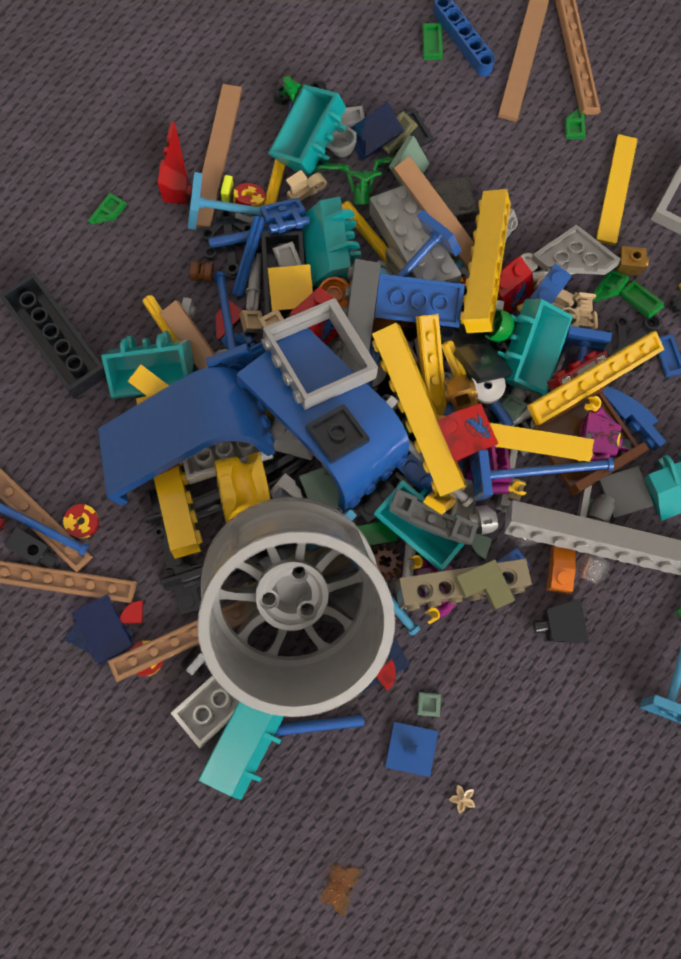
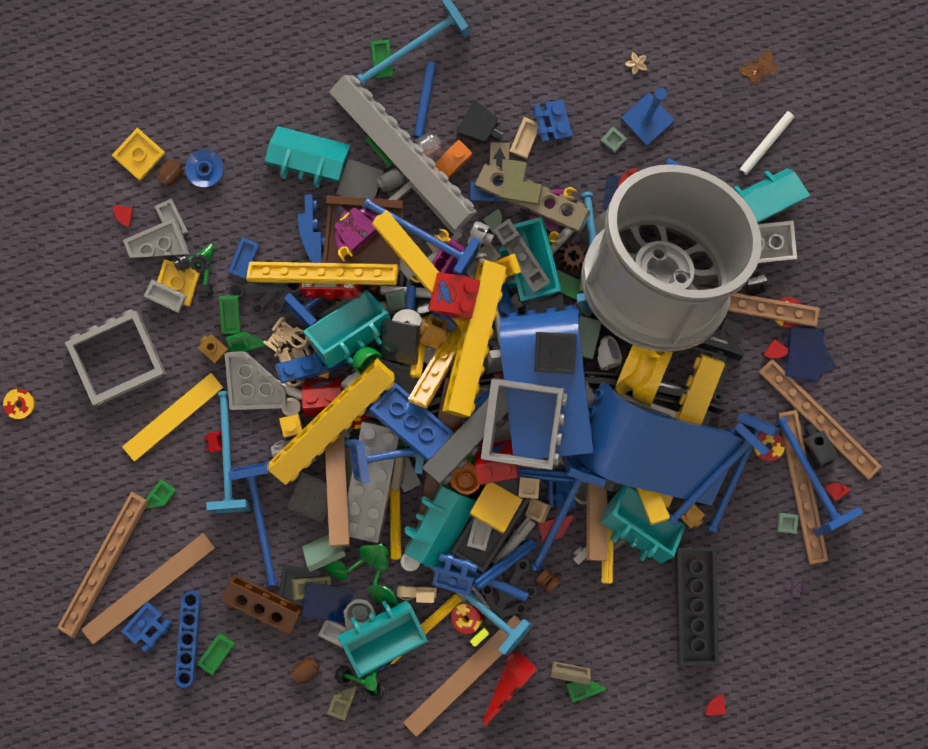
camera: 140 degrees left, 10 degrees up
(17, 465) = (787, 523): none -> sand green tile
(98, 500) = (749, 442): none -> blue tile
(101, 525) = (757, 426): none -> blue tile
(112, 406) = (692, 517): none -> pearl gold brick
(127, 212) = (571, 673): none -> dark tan tile
(279, 813) = (767, 142): none -> white piece
(302, 69) = (341, 703): none -> olive tile
(351, 72) = (305, 670): none -> reddish brown brick
(427, 94) = (257, 595): none -> reddish brown brick
(497, 684) = (557, 121): none -> blue plate
(508, 23) = (142, 622): none -> blue plate
(511, 644) = (525, 138): none -> tan tile
(515, 147) = (228, 504): none -> dark azure tile
(516, 244) = (291, 425): none -> yellow brick
(517, 184) = (250, 473): none -> blue tile
(523, 609) = (499, 155): none -> dark tan tile
(565, 193) = (215, 441): none -> red tile
(630, 612) = (425, 98): none -> blue piece

